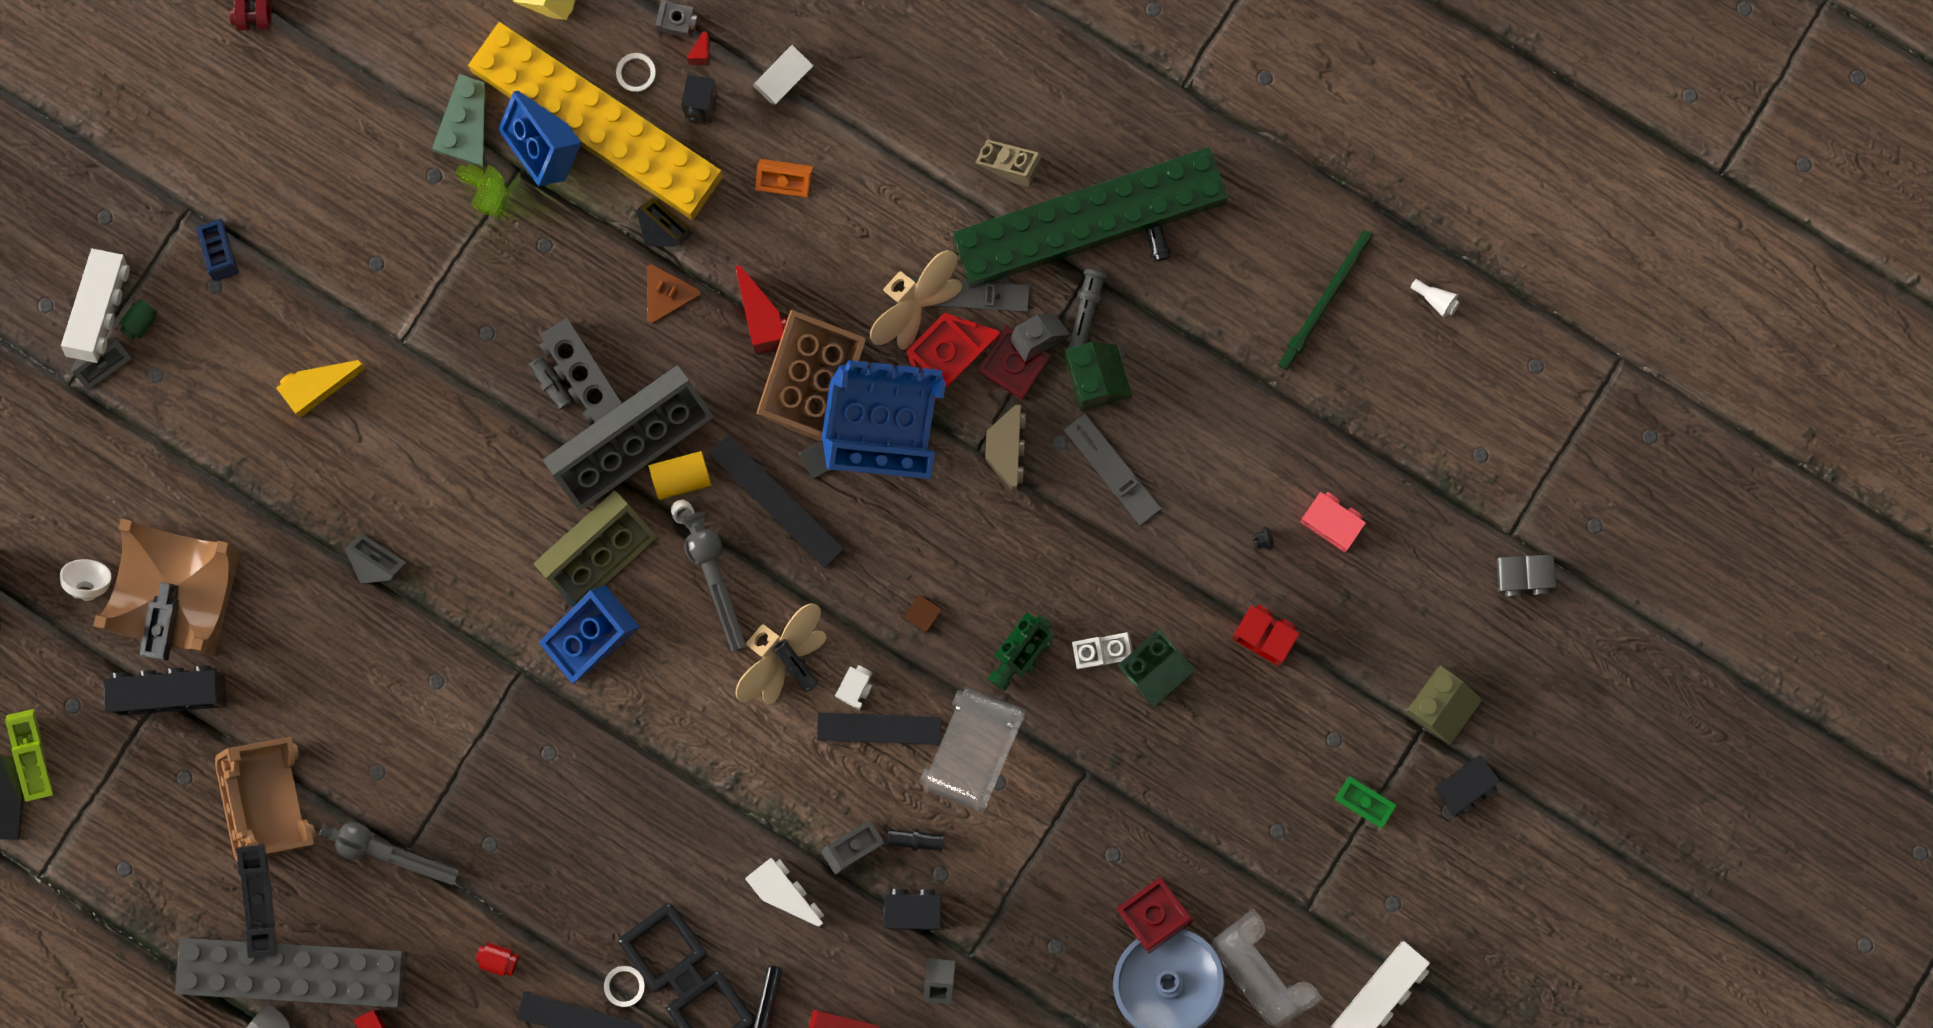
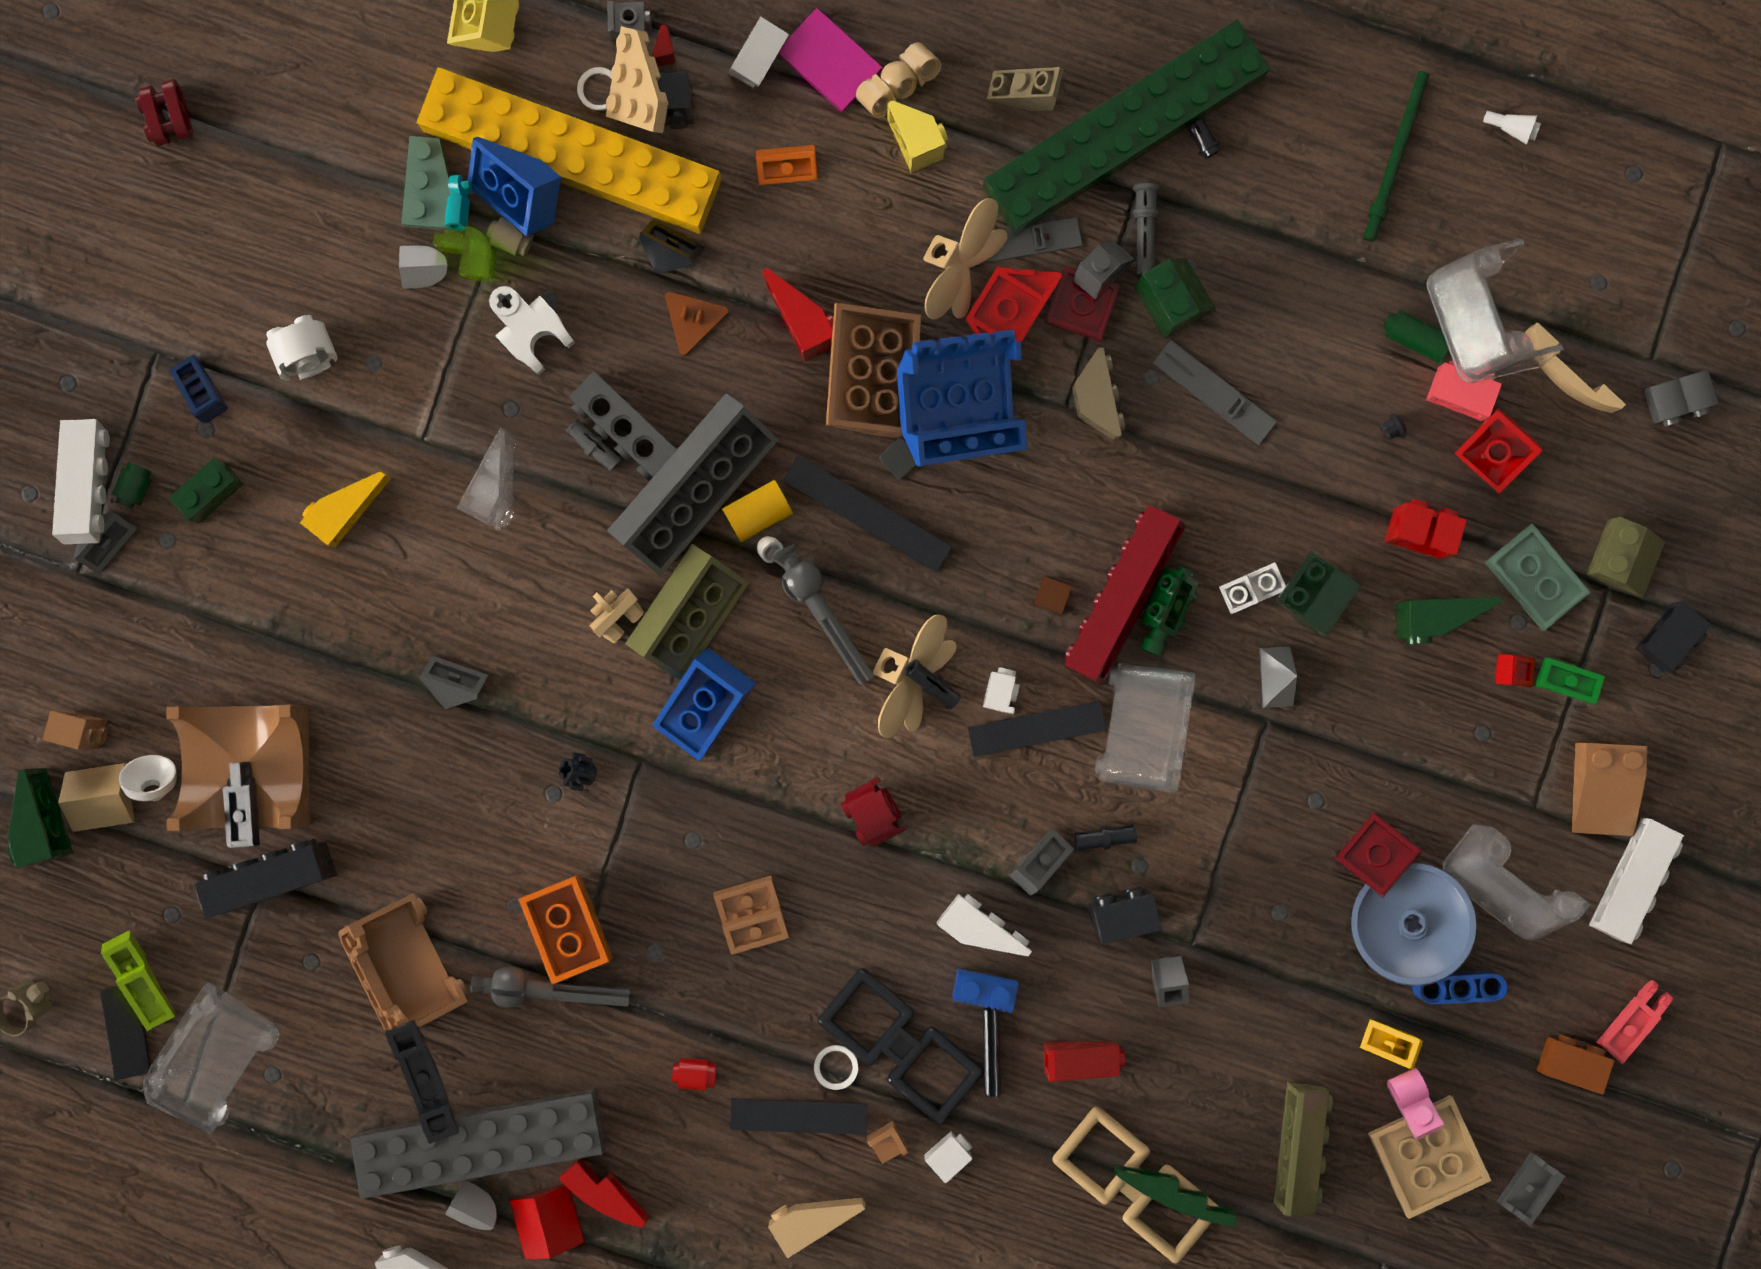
camera: 20 degrees left, 5 degrees up
(34, 521) = (75, 730): none -> medium nougat brick
(34, 586) = (95, 799): none -> tan slope
(73, 837) = (207, 1058): none -> clear windscreen
(201, 340) = (206, 490): none -> dark green brick
(316, 236) = (301, 348): none -> white brick
(416, 801) = (565, 929): none -> orange brick
(440, 190) = (421, 266): none -> light grey brick
(451, 398) = (492, 487): none -> clear slope
(462, 666) = (577, 771): none -> black gear
(486, 143) = (457, 203): none -> teal bar
(518, 263) = (526, 325): none -> white piece
(521, 542) = (605, 623): none -> tan hips
(523, 184) = (509, 238): none -> dark tan brick
(583, 831) = (751, 915): none -> medium nougat slope
(666, 76) = (634, 84): none -> tan plate
(713, 765) = (873, 813): none -> dark red brick
(773, 948) = (985, 990): none -> blue brick
(844, 96) = (828, 59): none -> dark pink tile
(899, 128) = (898, 79): none -> tan piece
(903, 181) = (917, 135): none -> light yellow slope
(985, 628) = (1125, 594): none -> dark red brick
(1104, 735) = (1277, 677): none -> slope
(1251, 714) = (1424, 619): none -> dark green slope
(1303, 462) = (1416, 335): none -> dark green brick
(1319, 781) = (1515, 670): none -> red slope
(1348, 465) = (1472, 322): none -> clear windscreen
(1351, 581) = (1499, 450): none -> red slope
(1359, 703) = (1537, 577): none -> sand green tile
(1375, 906) = (1608, 788): none -> medium nougat slope
(1452, 557) = (1599, 398): none -> tan slope

